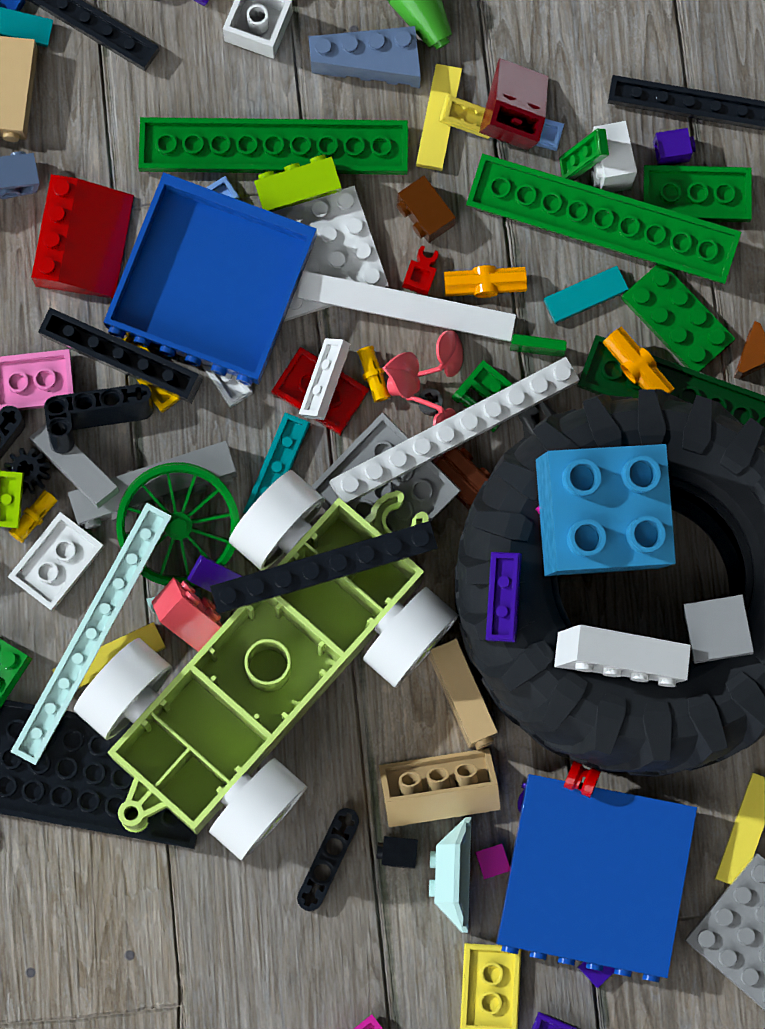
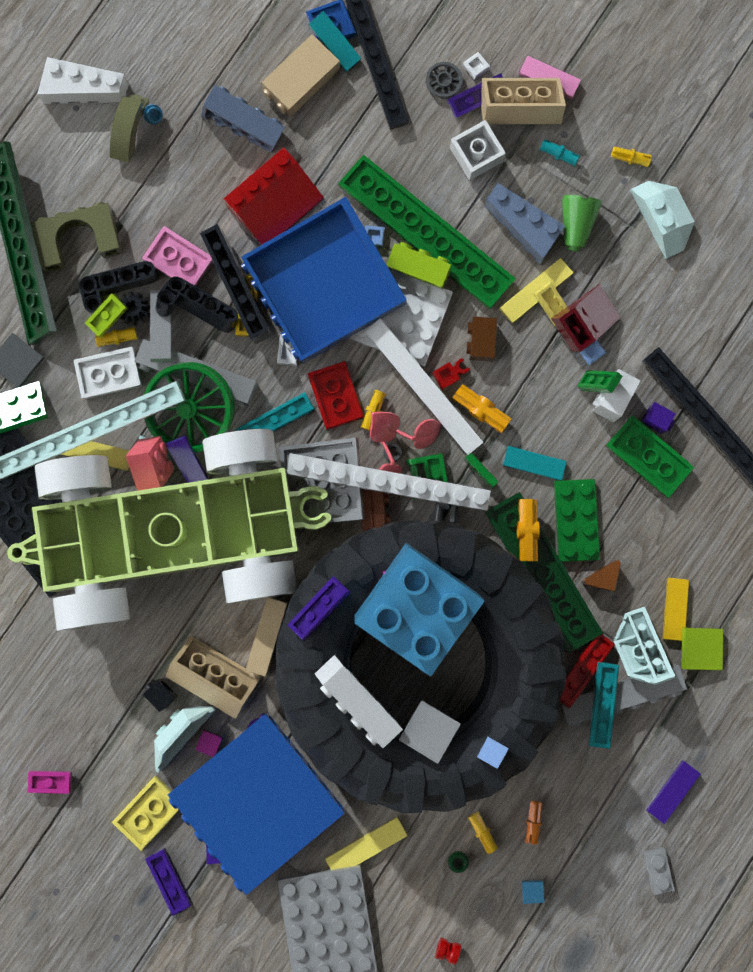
camera: 45 degrees right, 5 degrees up
(323, 567) = (240, 501): black plate -> none
(324, 379) = (341, 391): white plate -> none
(326, 858) = (119, 666): black beam -> none
(575, 778) = (286, 741): red wheel -> none
(603, 219) = (581, 428): green plate -> none

